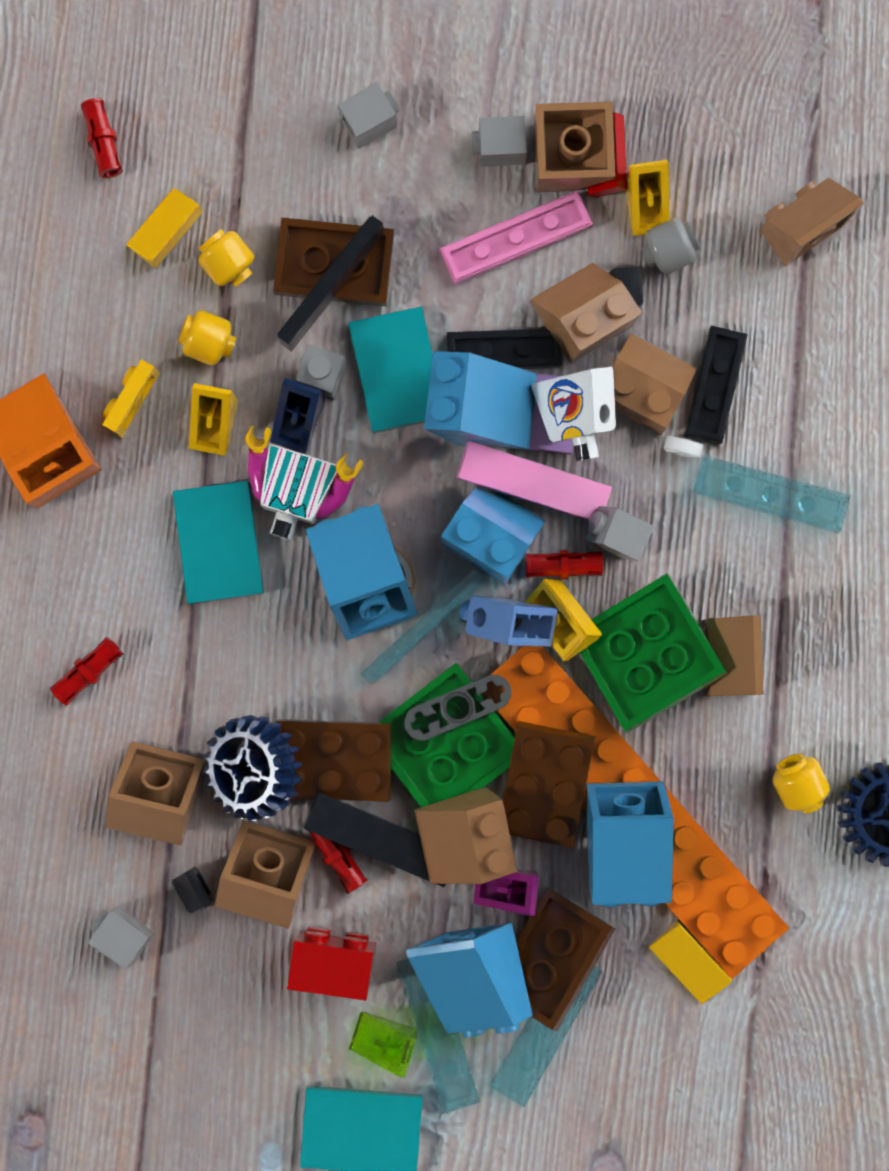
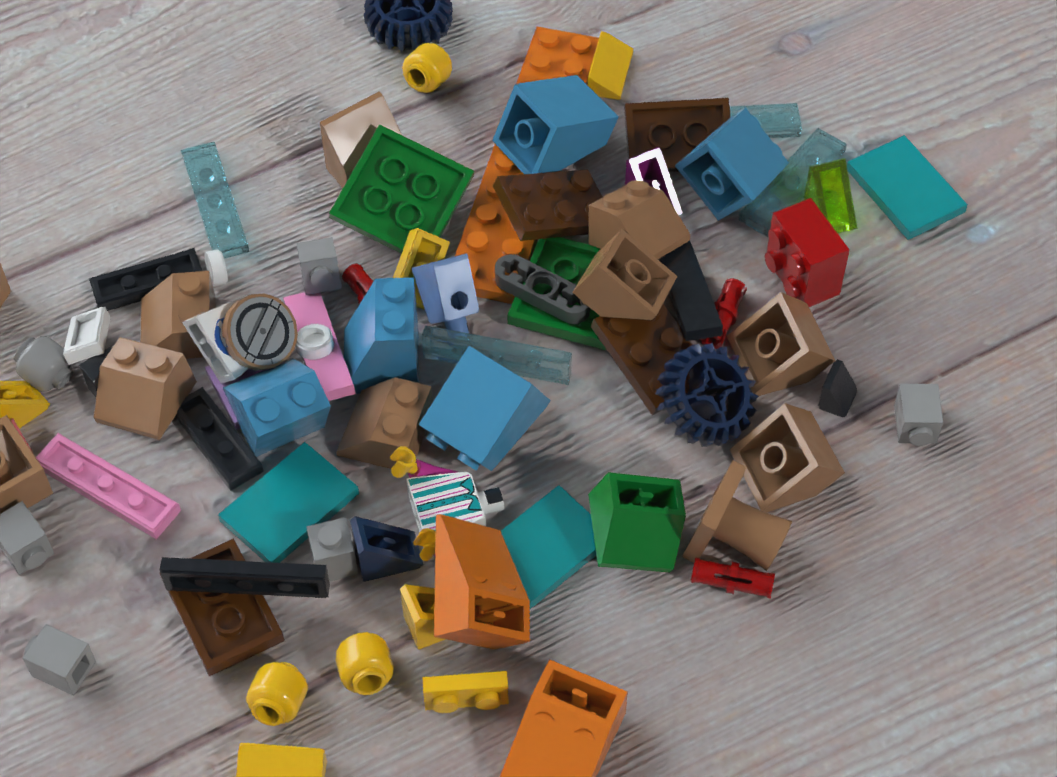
camera: 125 degrees left, 30 degrees down
(127, 694) = (738, 524): none -> medium nougat plant
(175, 623) = (637, 521): none -> green slope
(195, 453) = (477, 587): none -> orange slope
(401, 774) = (625, 280): none -> medium nougat slope
(416, 490) = (385, 420): none -> medium nougat slope
(530, 474) = (314, 341): none -> white tile
(556, 425) = (260, 331): none -> tile
(674, 294) = (87, 335): none -> white tile

